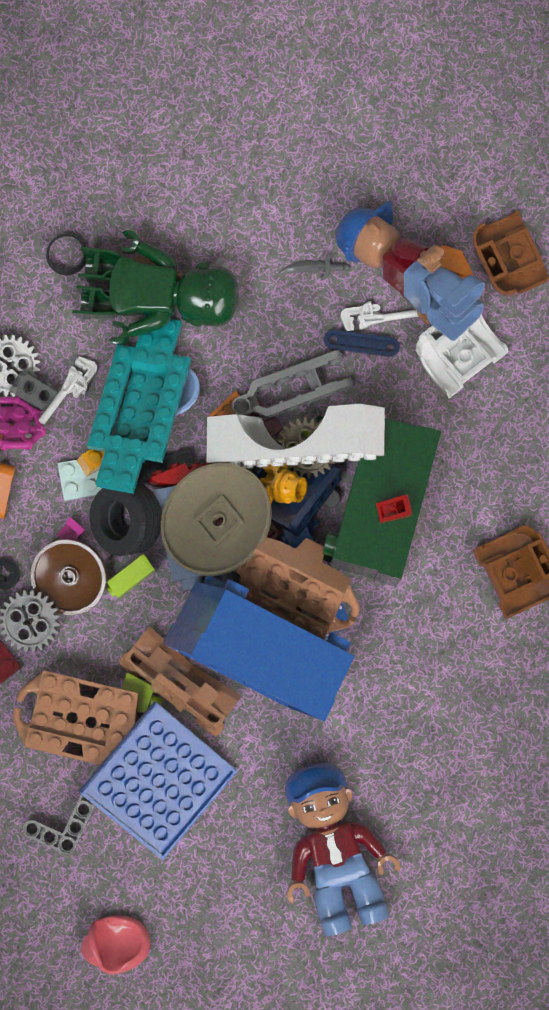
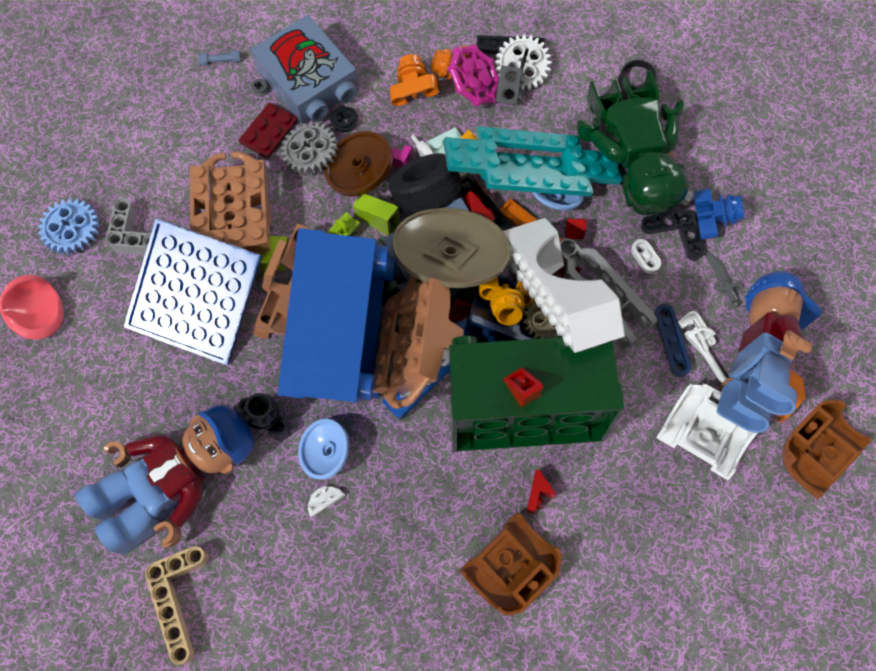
camera: 75 degrees right, 15 degrees down
(44, 877) = (68, 226): none -> light blue gear
(74, 383) = (529, 116): white piece -> none
(74, 504) = (422, 148): none -> white hand
(136, 616) = (344, 226): none -> lime hips
(182, 436) = (516, 214): none -> orange tile
(216, 387) = (575, 229): none -> red slope
(251, 235) = (712, 212): none -> blue beam
(251, 282) = (682, 226): none -> black beam
(268, 329) = (647, 256): none -> white plate
(304, 741) = (263, 413): none -> black beam
(362, 711) = (316, 448): none -> light blue dish
(398, 717) = (323, 498): none -> white tile
(445, 878) = (171, 600): none -> tan beam
(456, 521) = (539, 487): none -> red slope

